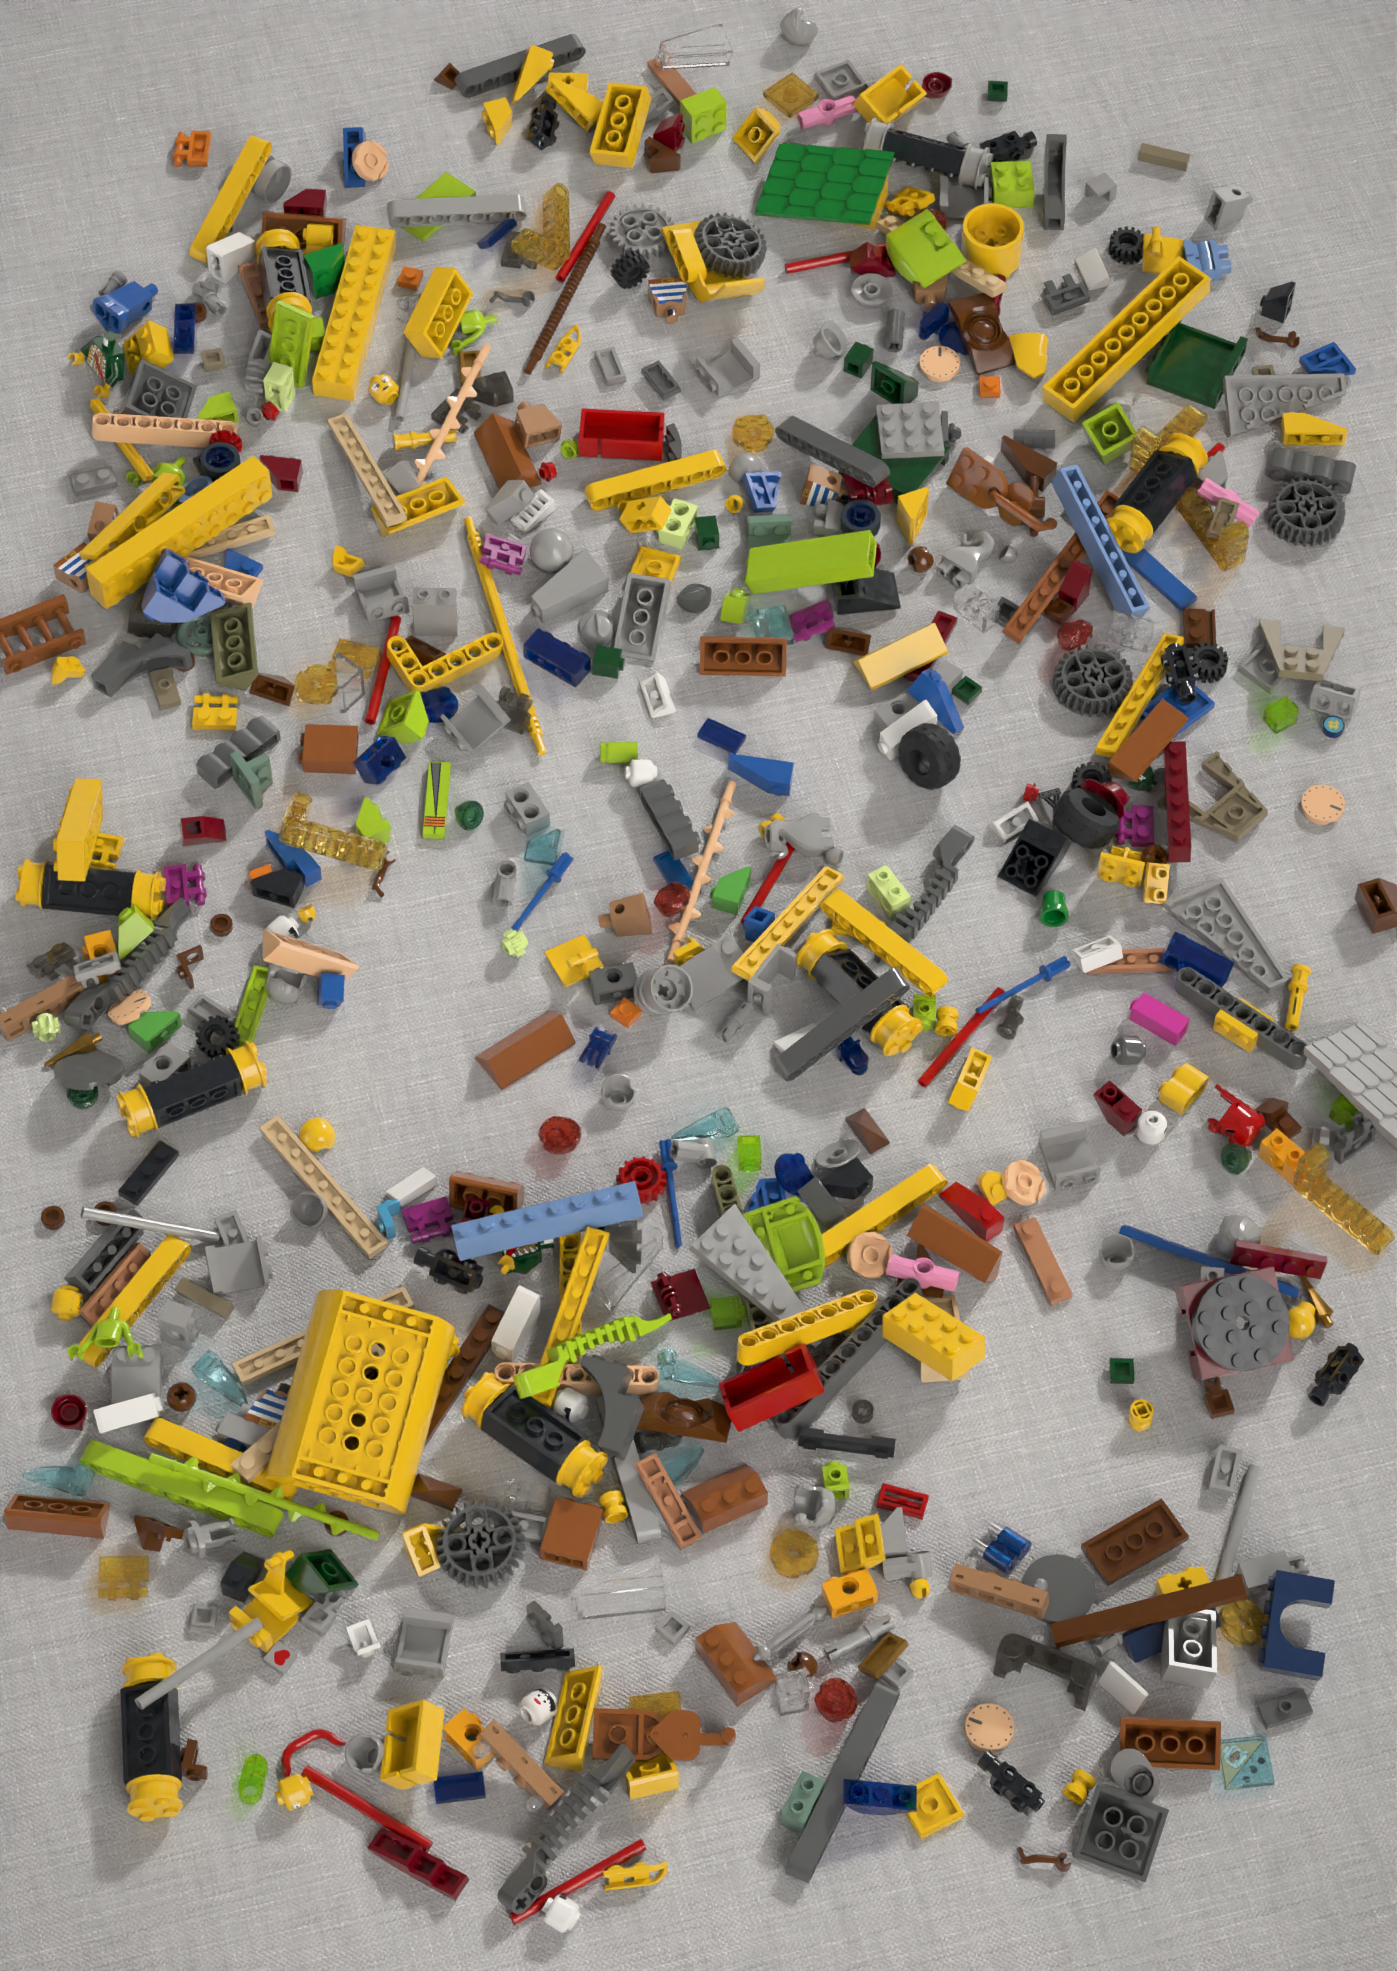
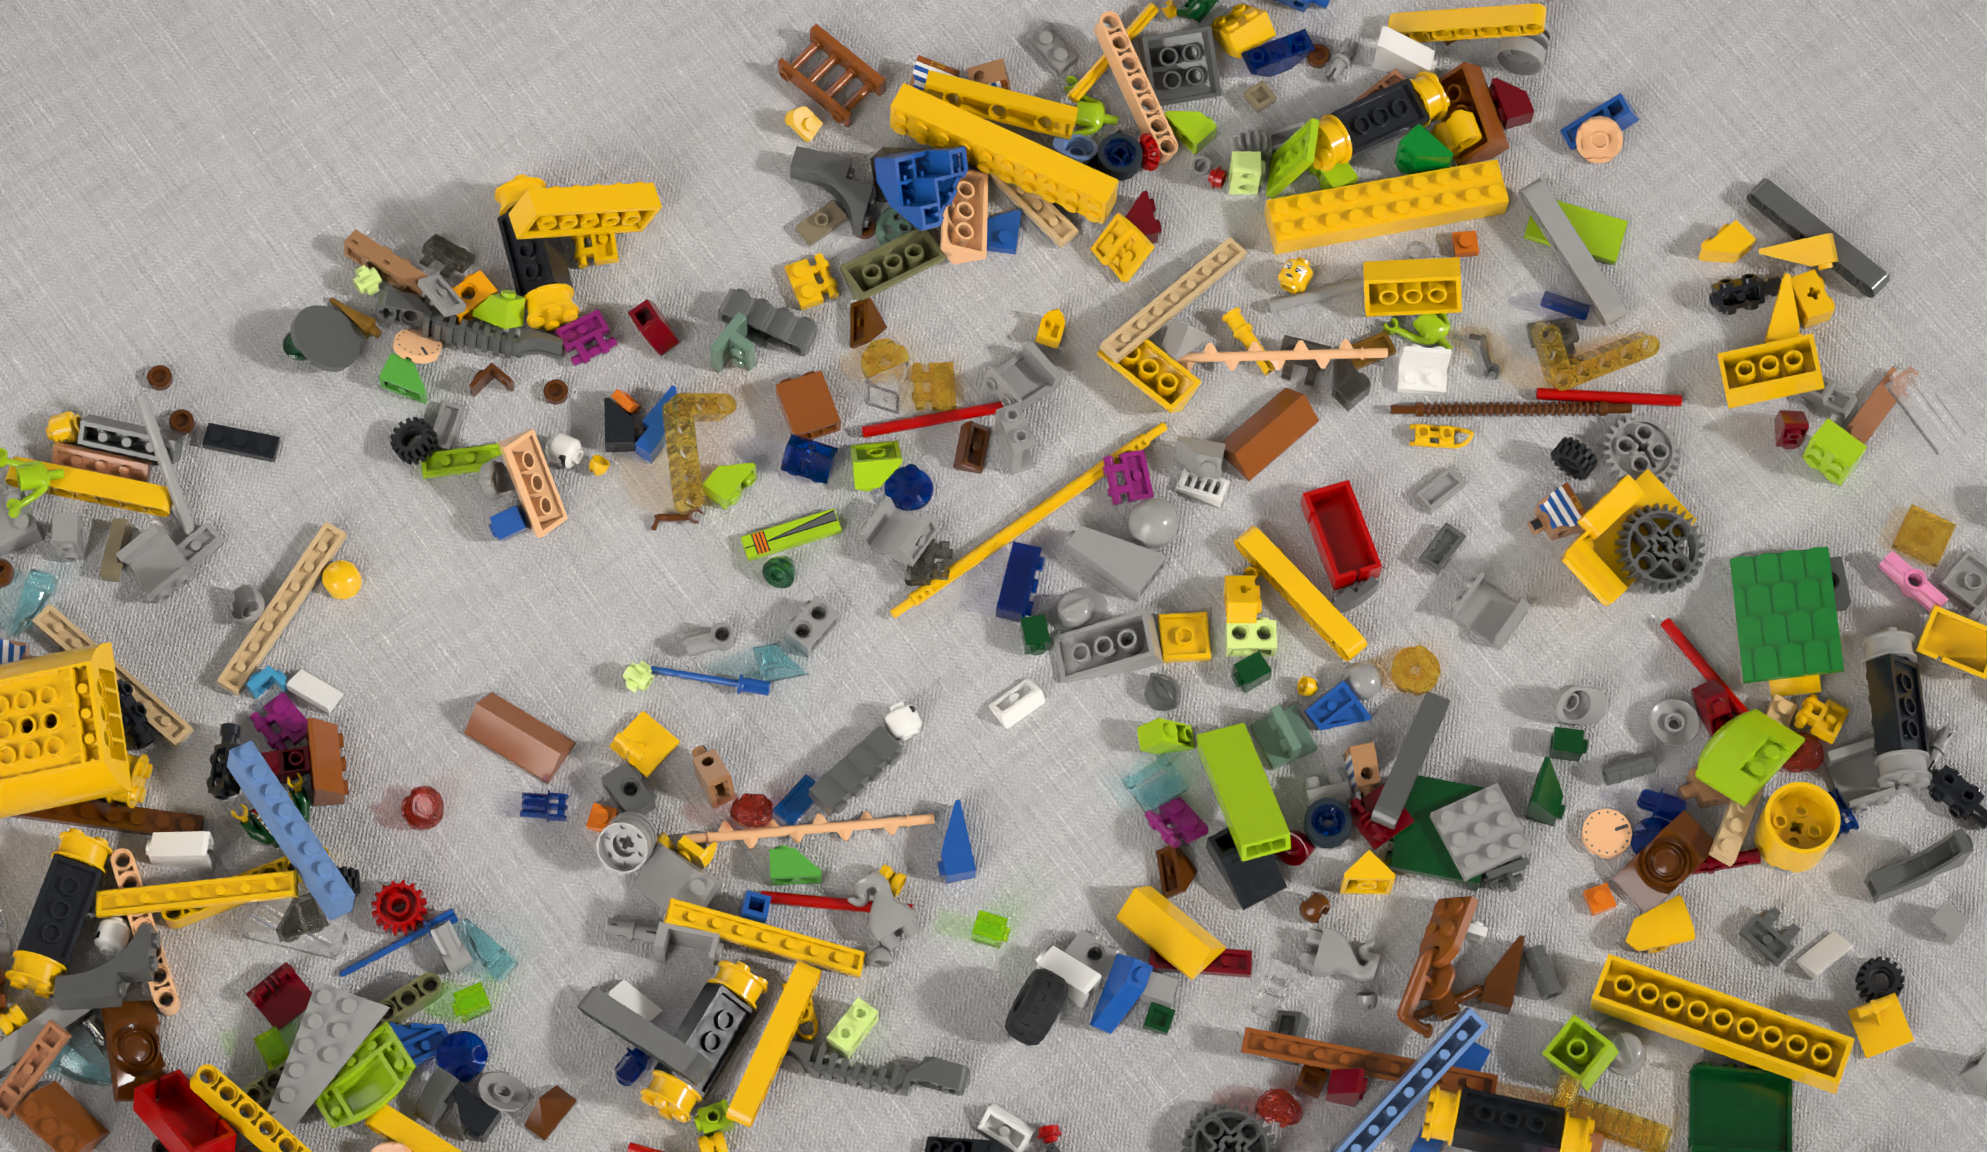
camera: 65 degrees right, 10 degrees up
(165, 1057) = (370, 417): light grey brick -> none
(192, 1090) = (301, 407): black brick -> none
(301, 489) = (1122, 247): none -> yellow slope
(442, 665) = (958, 474): yellow beam -> none
(447, 76) = (1768, 170): reddish brown slope -> none
(506, 339) = (1423, 370): none -> white bracket
(536, 425) = (1316, 443): medium nougat torso -> none
(547, 471) = (1262, 479): red plate -> none
(547, 1375) = (110, 895): lime piece -> none
(569, 448) = (1302, 487): lime plate -> none
(617, 1092) = (494, 845): light grey hair -> none
(618, 752) = (922, 690): lime piece -> none
(661, 157) = (1756, 434): reddish brown slope -> none
(679, 1371) = (191, 1024): clear light blue piece -> none
(721, 736) = (991, 786): clear blue tile -> none
(743, 656) = (1099, 768): dark orange slope -> none
(757, 133) = (1843, 520): yellow slope -> none
(844, 774) = (990, 929): none -> clear neon green brick
(1012, 184) = (1904, 821): lime brick -> none
(1207, 257) = (1896, 1075): medium blue hips -> none

